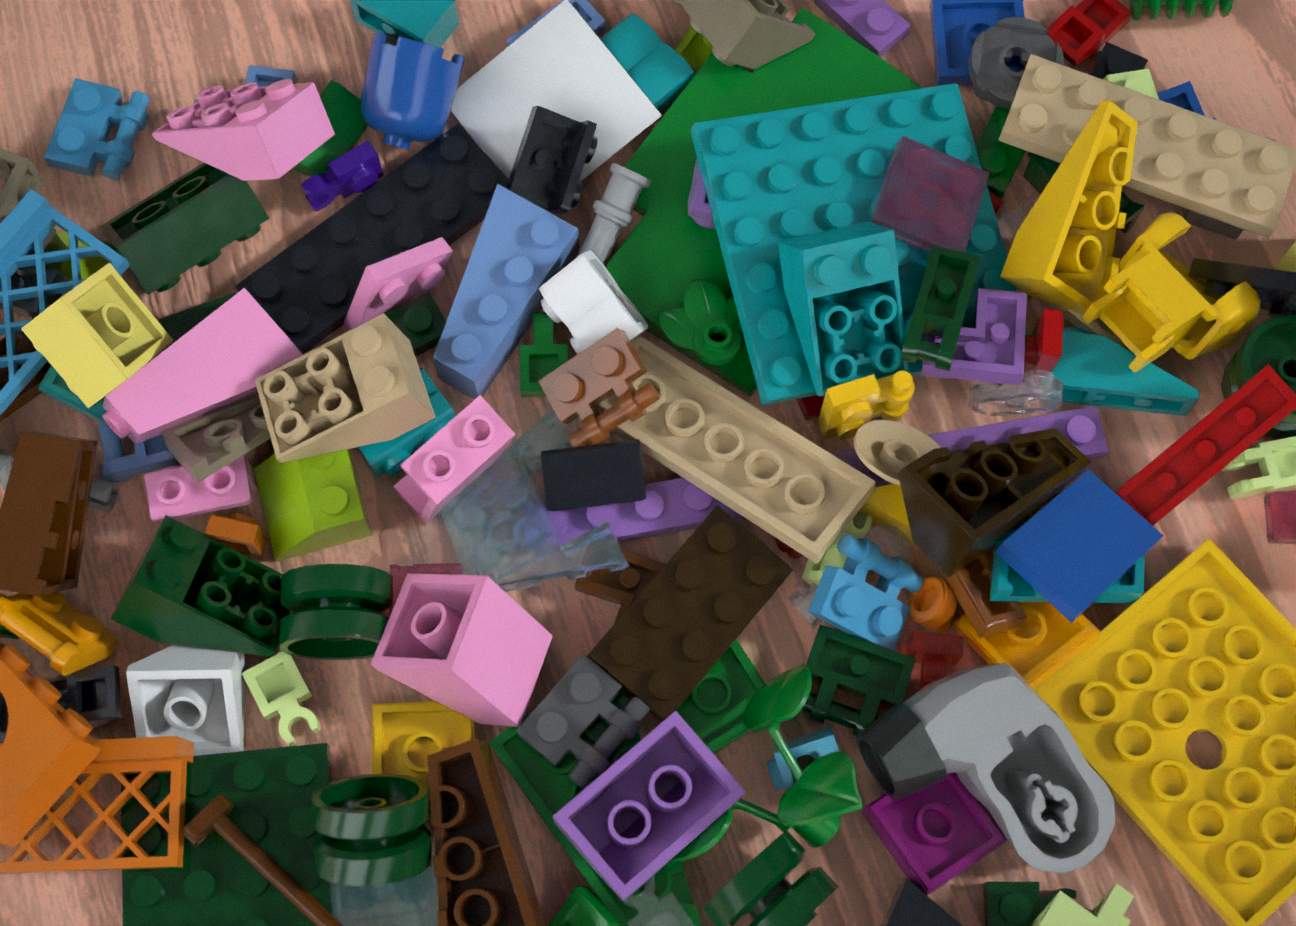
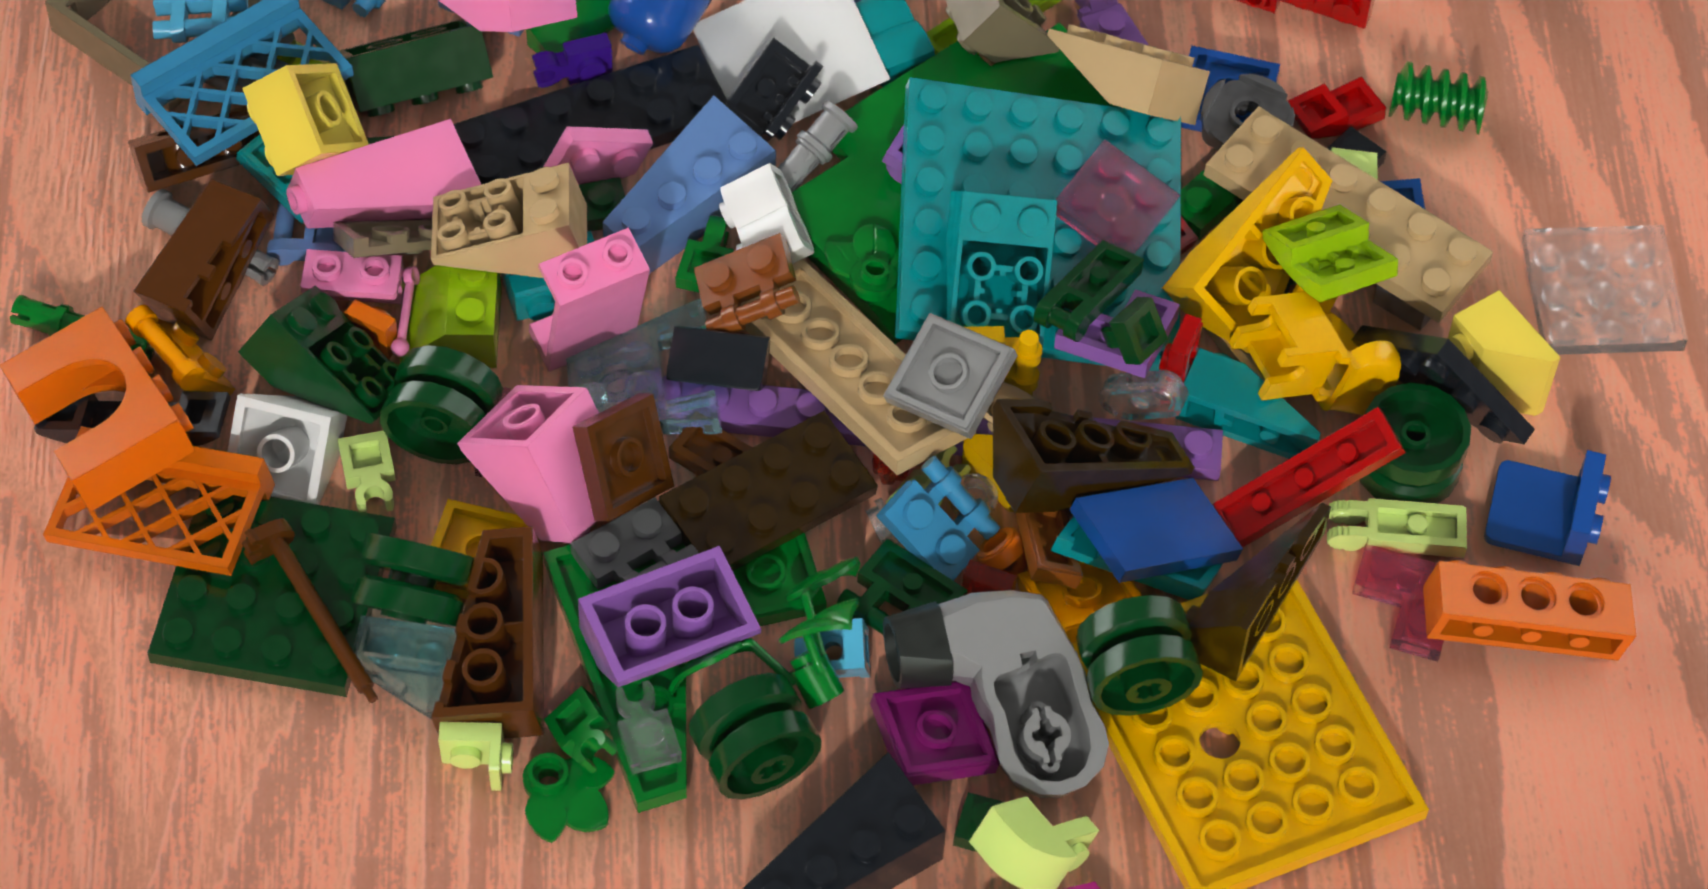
camera: 15 degrees right, 15 degrees down
(258, 468) = (411, 278): none -> bright pink hinge
(541, 626) = (623, 456): none -> reddish brown plate
(840, 445) = (950, 375): none -> light grey tile
(898, 52) = (1135, 73): none -> tan slope
(1007, 345) = (1136, 331): none -> dark green tile
(1125, 709) = (1139, 655): none -> dark green wheel
(1161, 203) = (1330, 253): none -> lime slope
(1199, 615) = (1246, 602): none -> dark brown wedge

